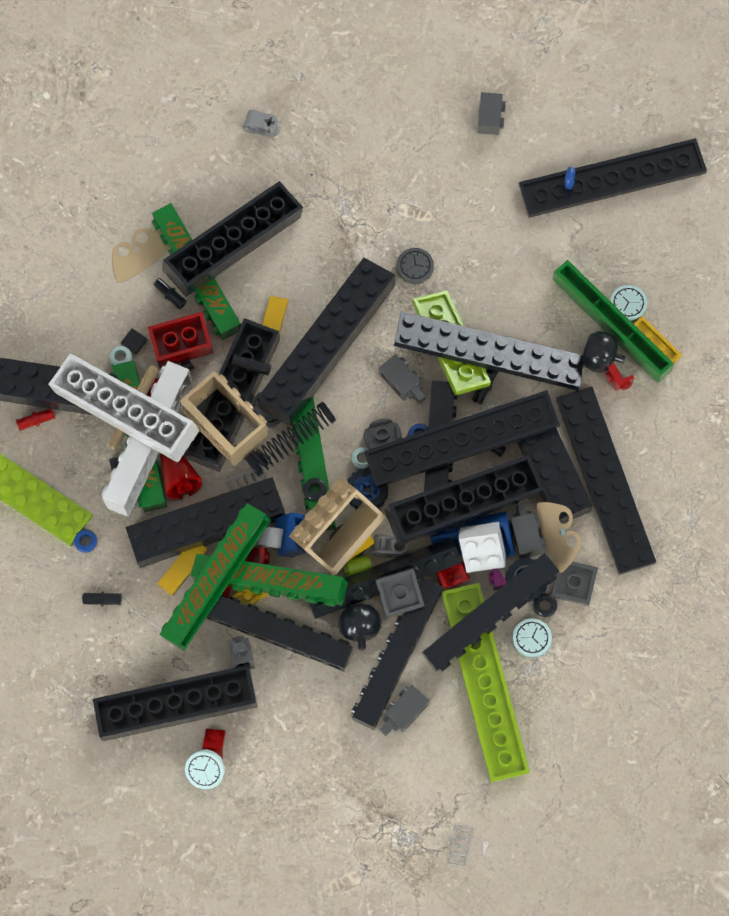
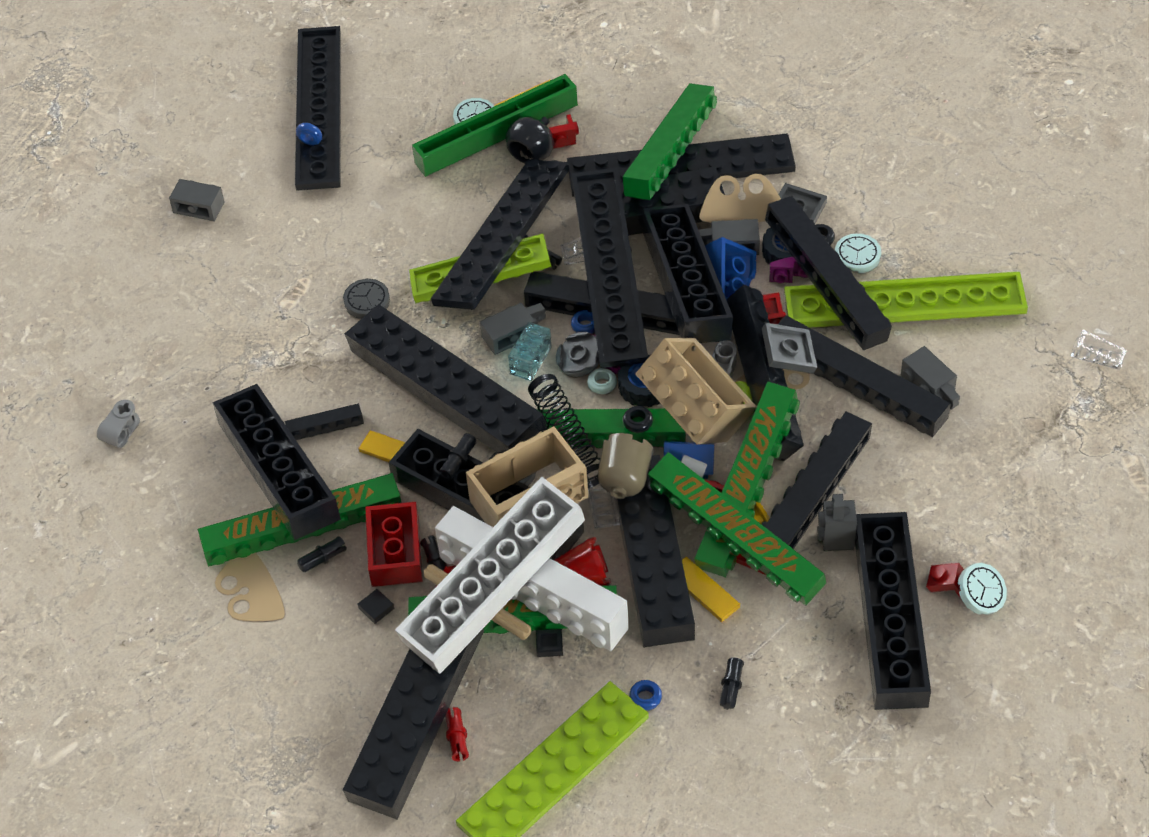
camera: 80 degrees left, 20 degrees down
(120, 349) = (390, 615): light aqua piece -> none
(252, 485) = (624, 465): none -> dark tan cylinder
(288, 265) = (325, 422): none -> black piece
(359, 623) = (818, 403): black piece -> none
(378, 398) = (530, 351): none -> clear light blue brick
(482, 547) = (745, 263): white piece -> none
(612, 463) = (669, 141): none -> green brick

